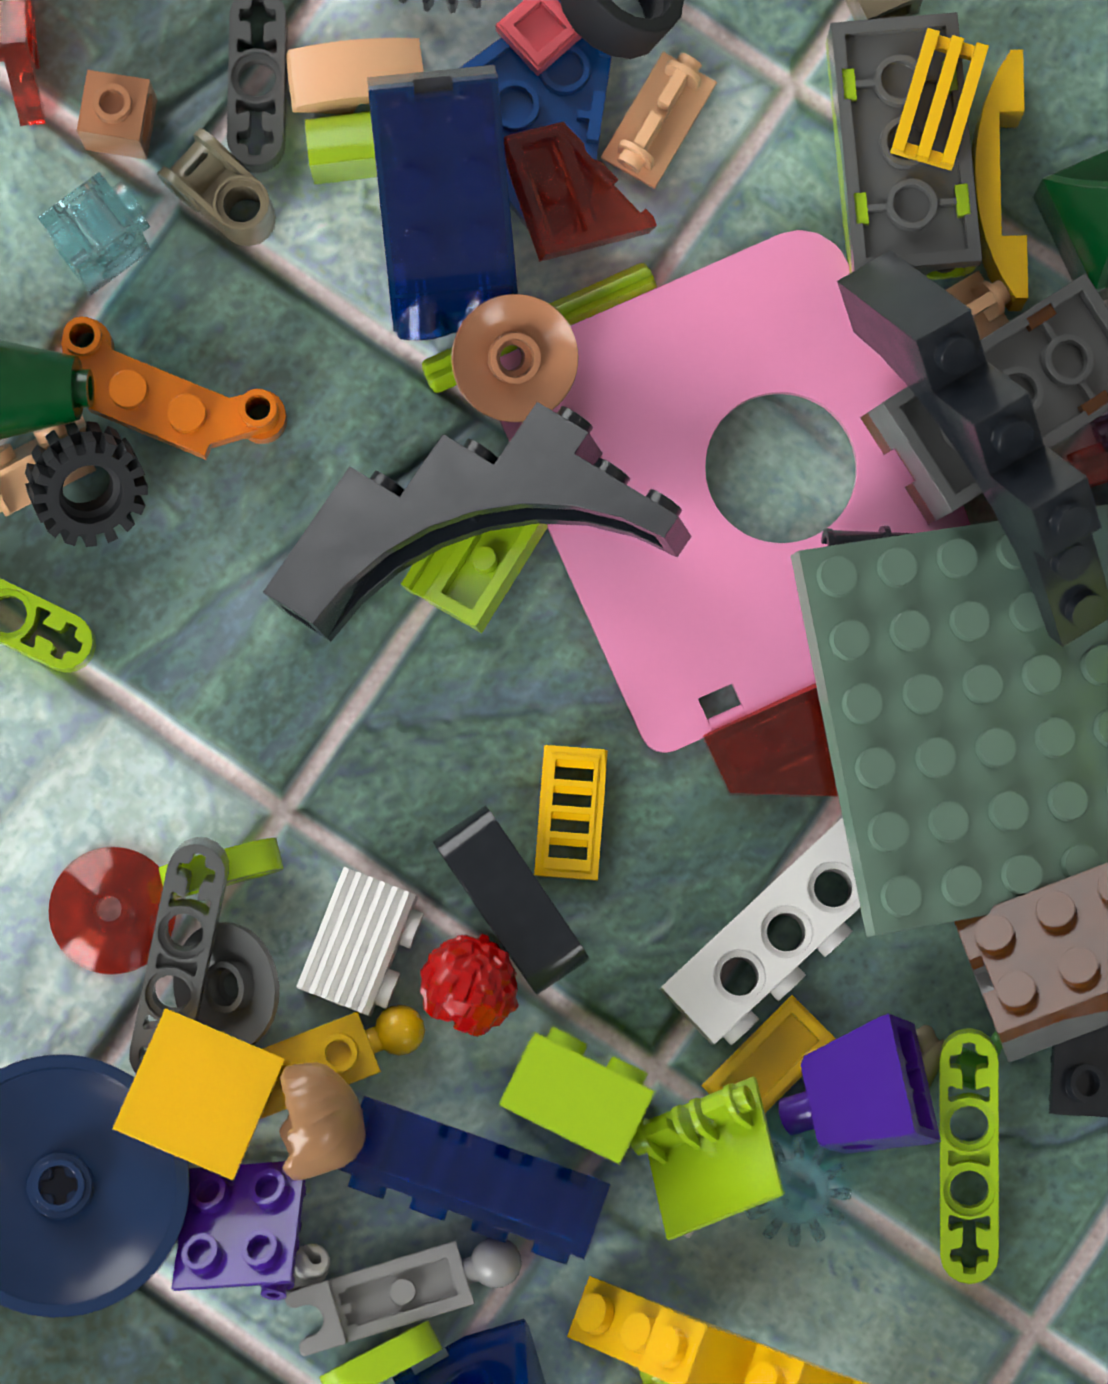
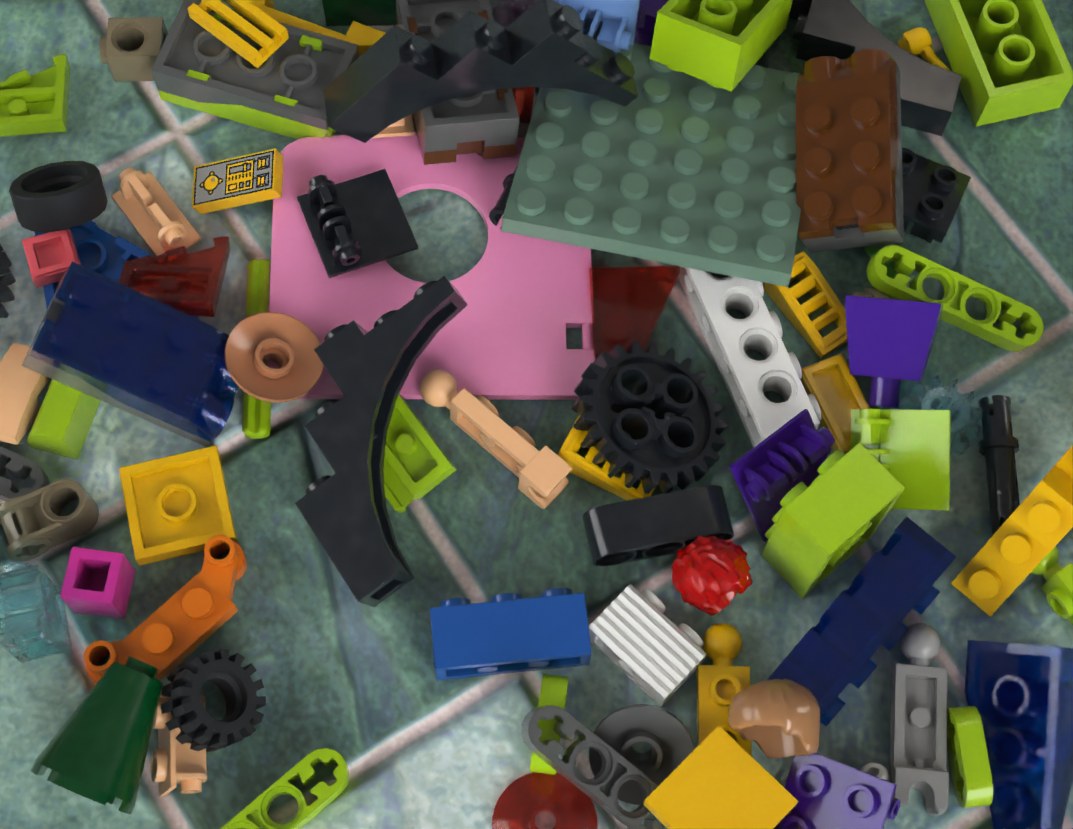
camera: 70 degrees left, 15 degrees down
(165, 290) = (98, 583): none -> dark pink brick
(305, 329) = (176, 504): none -> yellow tile
(305, 779) = (510, 634): none -> blue brick
(514, 734) = (539, 472): none -> light nougat plate
(589, 857) = (649, 417): none -> black gear
(633, 1022) = (780, 464): none -> dark purple hinge
(743, 198) = (238, 181): none -> tile
(746, 370) = (356, 222): none -> black hinge
(774, 1284) = (999, 452): none -> black pin
(923, 937) = (823, 296): none -> yellow slope

